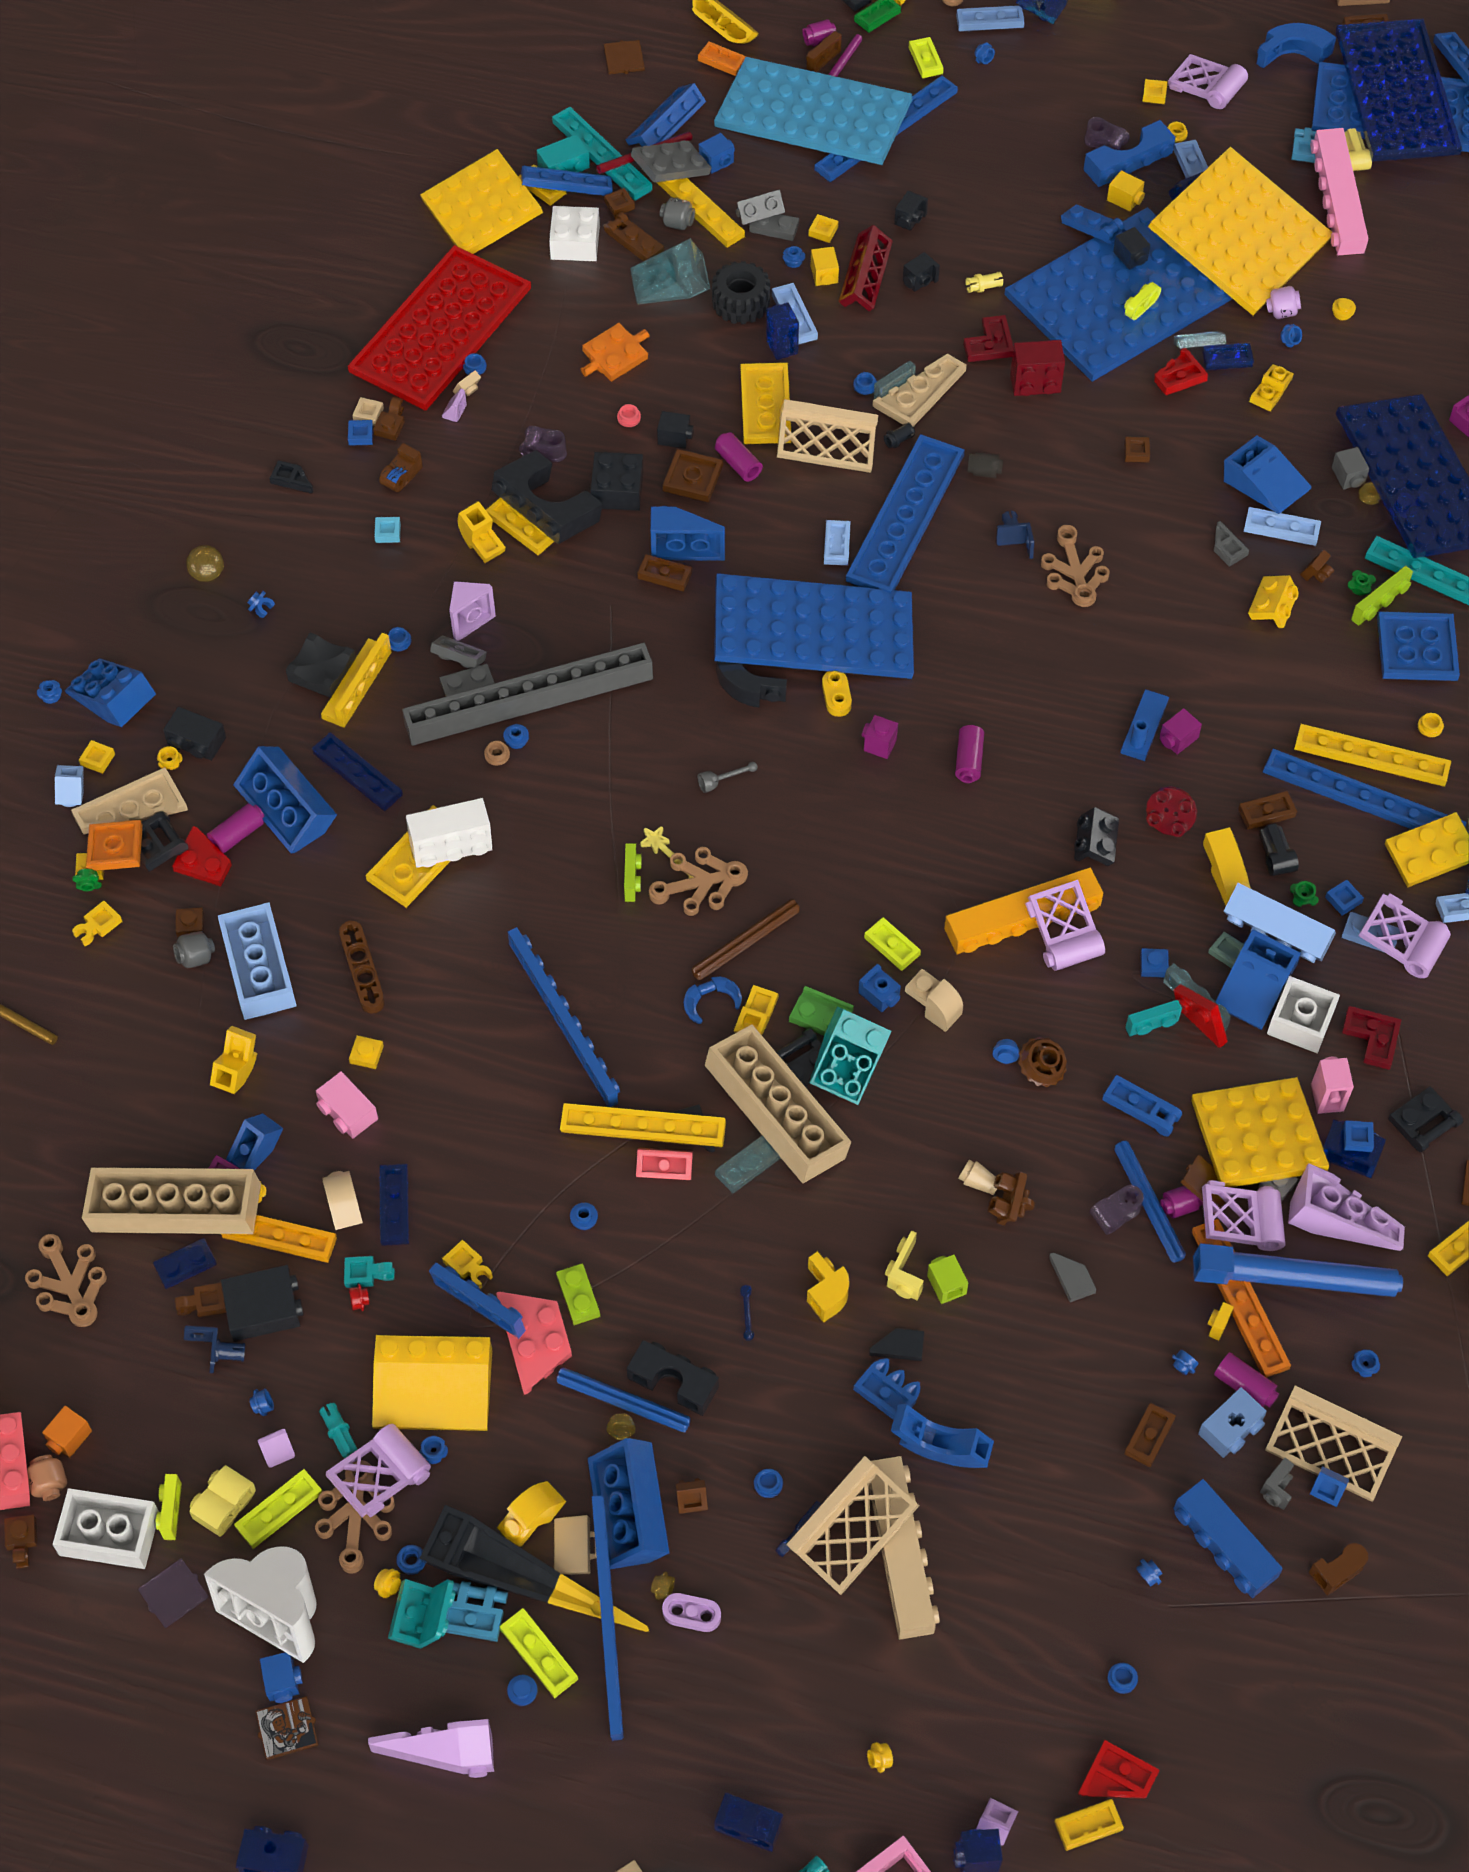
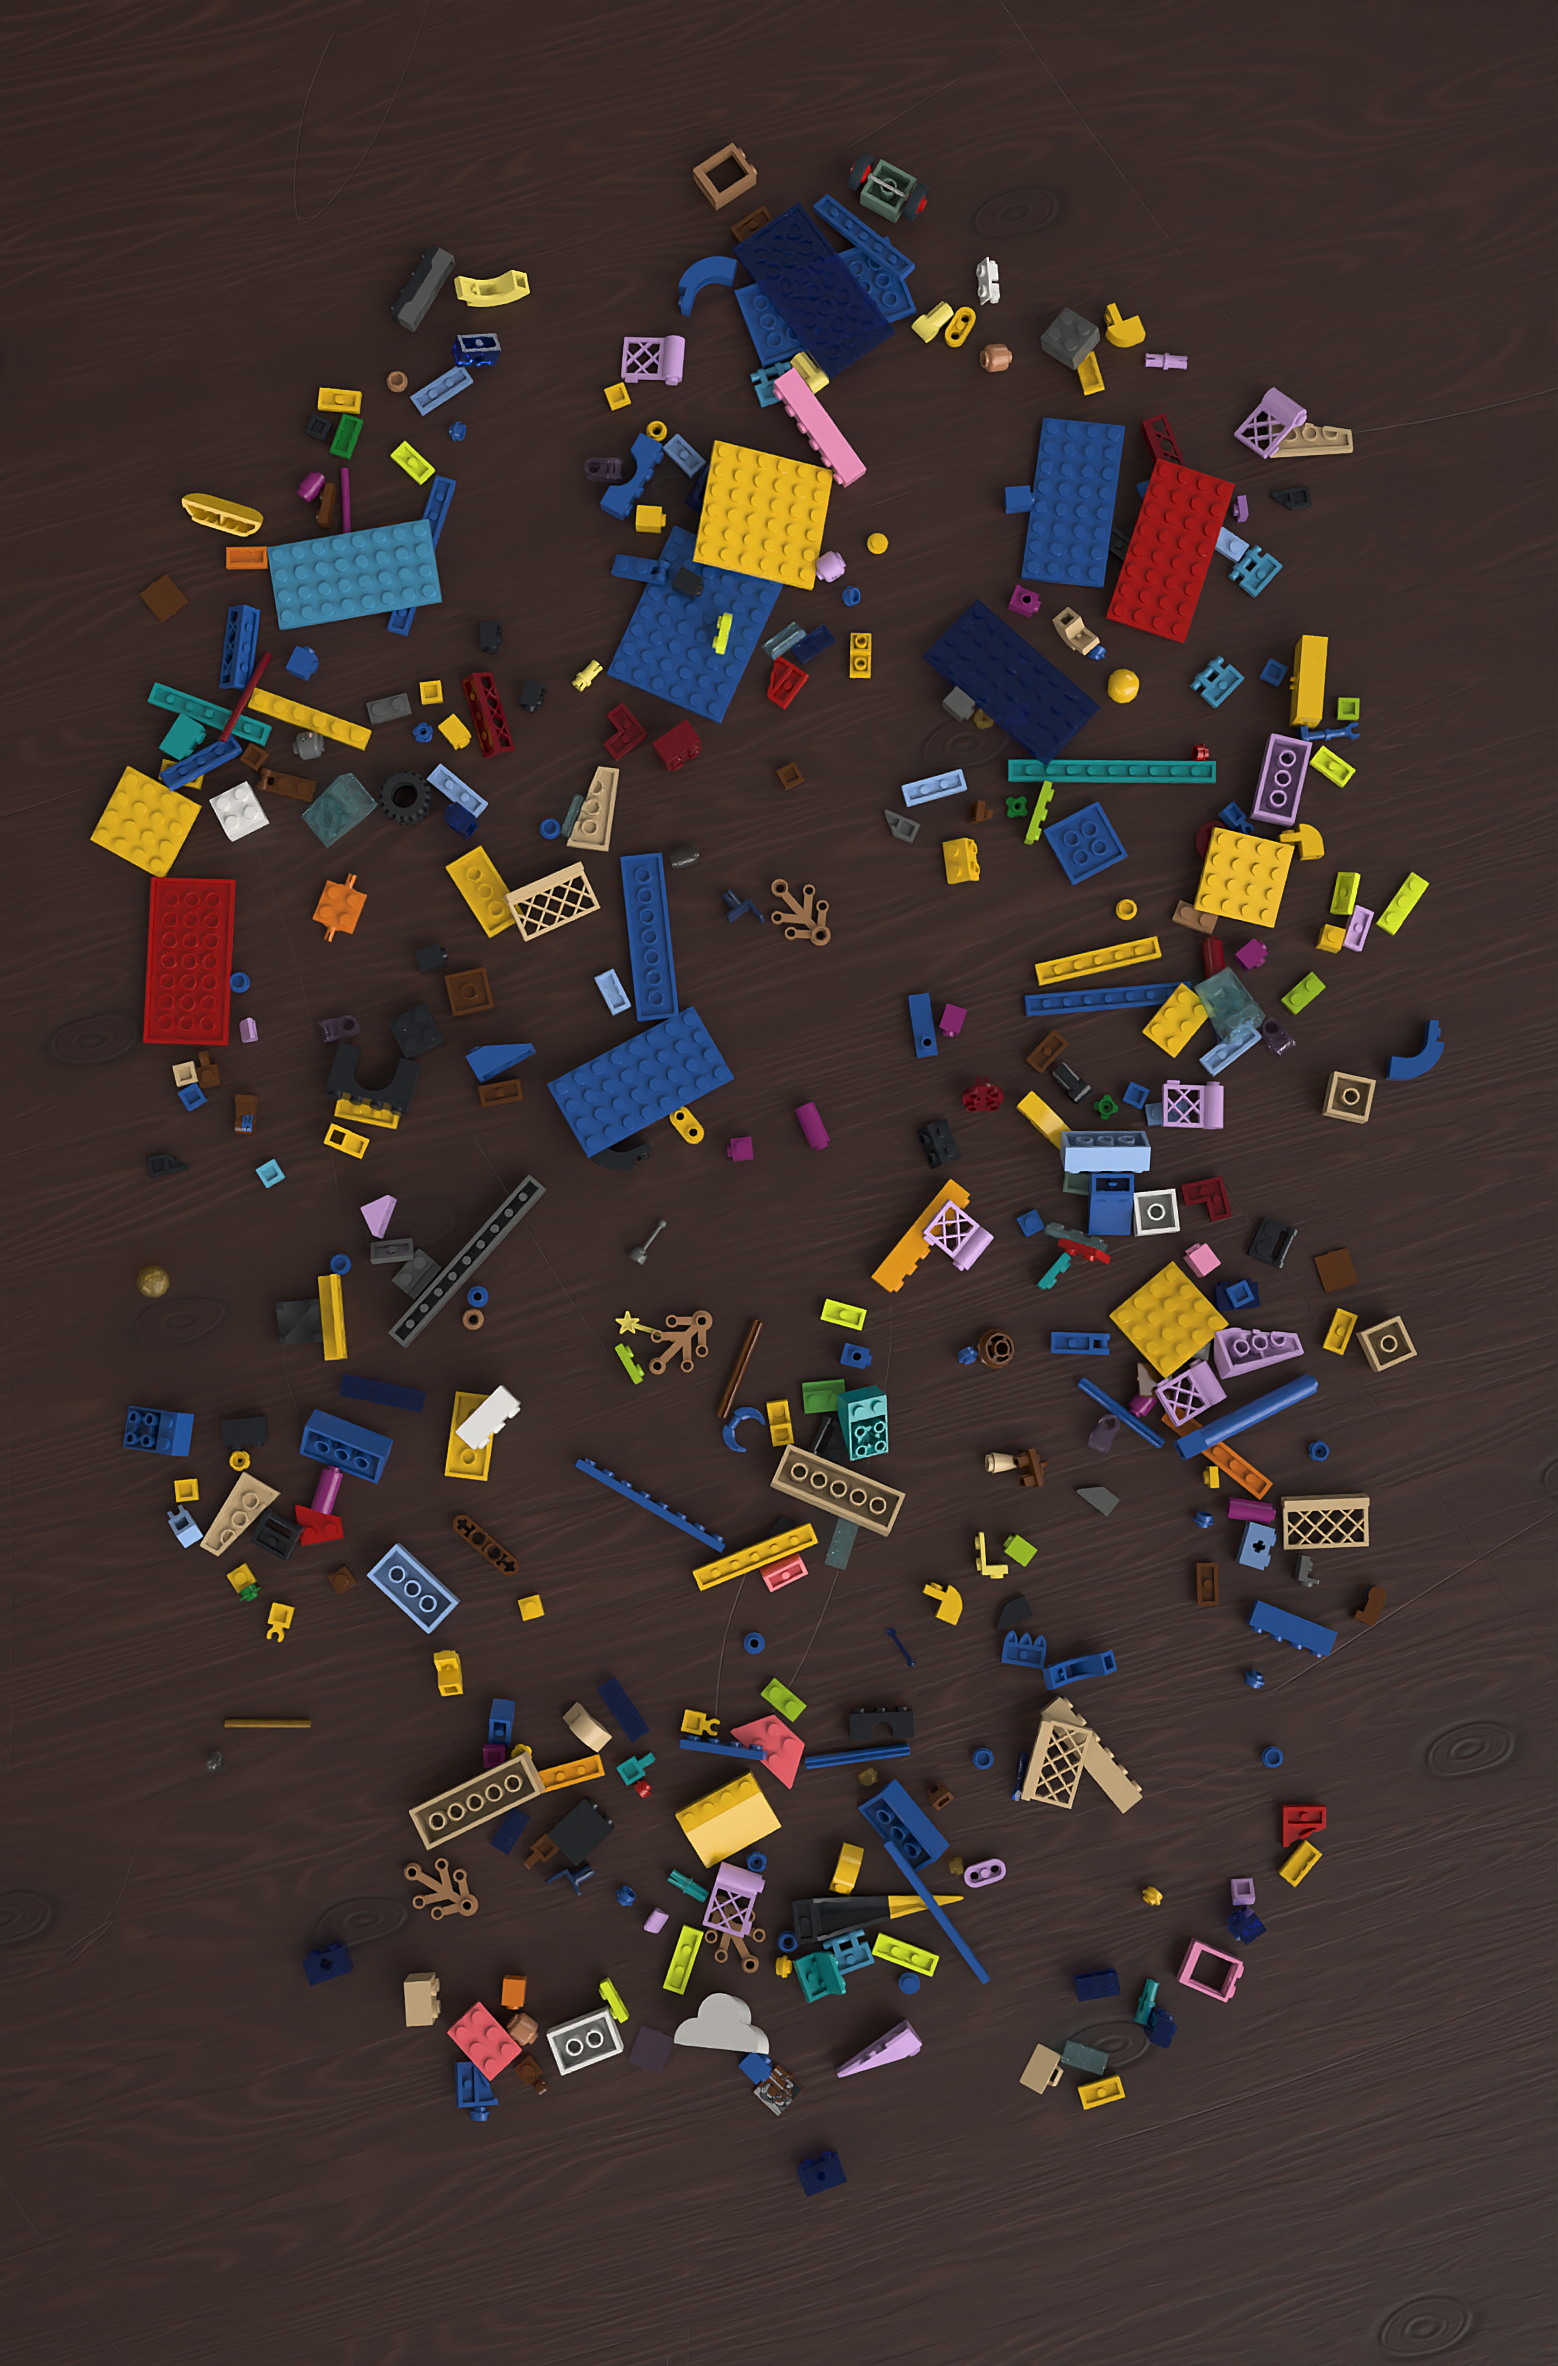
camera: 30 degrees left, 25 degrees up
(49, 696) = (116, 1459): blue plate -> none
(114, 845) = (251, 1557): orange tile -> none
(193, 949) = (362, 1602): dark grey head -> none
(222, 1500) = (644, 1976): light yellow brick -> none
(257, 601) = (214, 1293): blue plate -> none
(346, 1105) = (545, 1658): bright pink brick -> none
(469, 383) = (247, 1006): tan plate -> none
(572, 1545) = (882, 1870): tan piece -> none
(628, 415) = (387, 963): coral plate -> none
(670, 161) = (272, 696): dark grey plate -> none
(738, 456) = (493, 955): magenta brick -> none
(760, 207) = (372, 705): hinge -> none
(899, 435) = (603, 864): black pin -> none
(940, 999) = (897, 1345): tan brick -> none
(1265, 475) = (901, 752): blue slope -> none
(1329, 1486) = (1337, 1554): blue plate -> none

